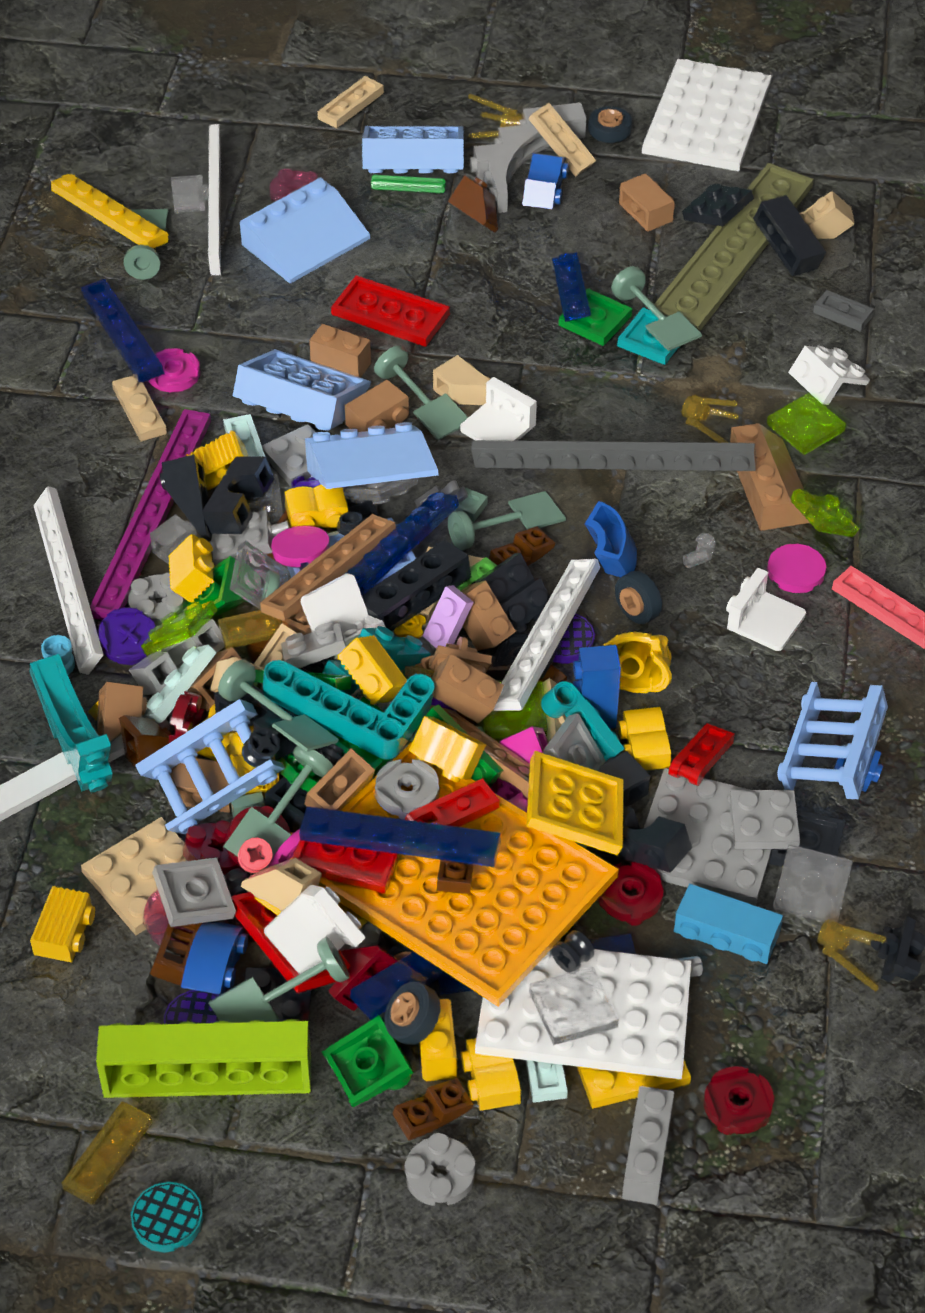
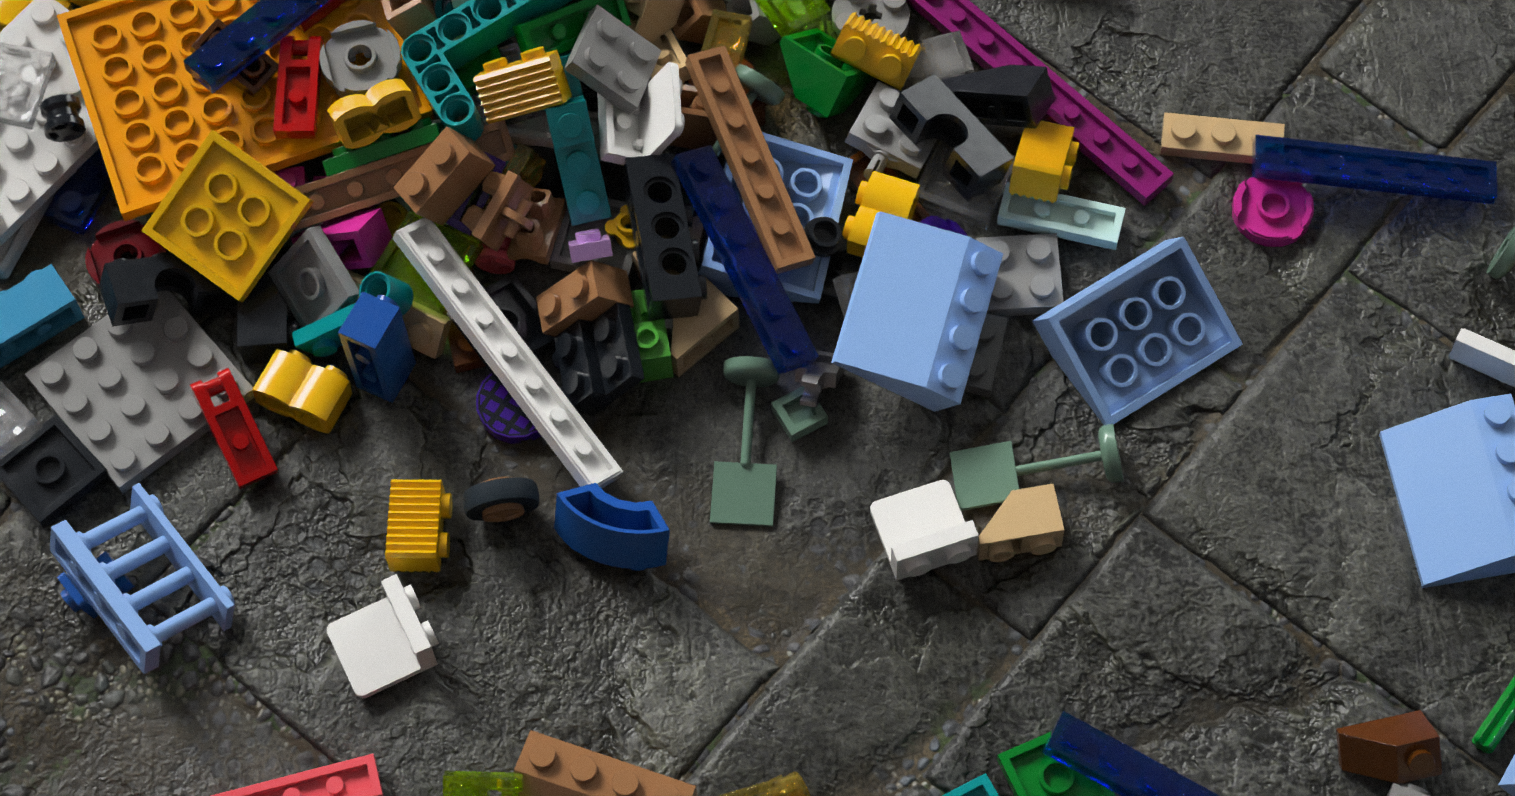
camera: 125 degrees right, 15 degrees up
(251, 572) = (813, 109): clear plate -> none
(299, 545) = (824, 165): dark pink tile -> none
(340, 350) = (1174, 404): medium nougat brick -> none
(379, 406) = (1033, 394): medium nougat brick -> none
(390, 310) = (1230, 517): red plate -> none
(530, 543) = (685, 434): reddish brown slope -> none
(614, 455) = (730, 613): dark grey plate -> none
(643, 661) = (414, 445): yellow head -> none
(688, 634) = (416, 525): none -> yellow brick
(703, 552) = (539, 643): clear arm -> none
(764, 819) = (98, 431): light grey plate -> none
(796, 568) = (436, 738): dark pink tile -> none

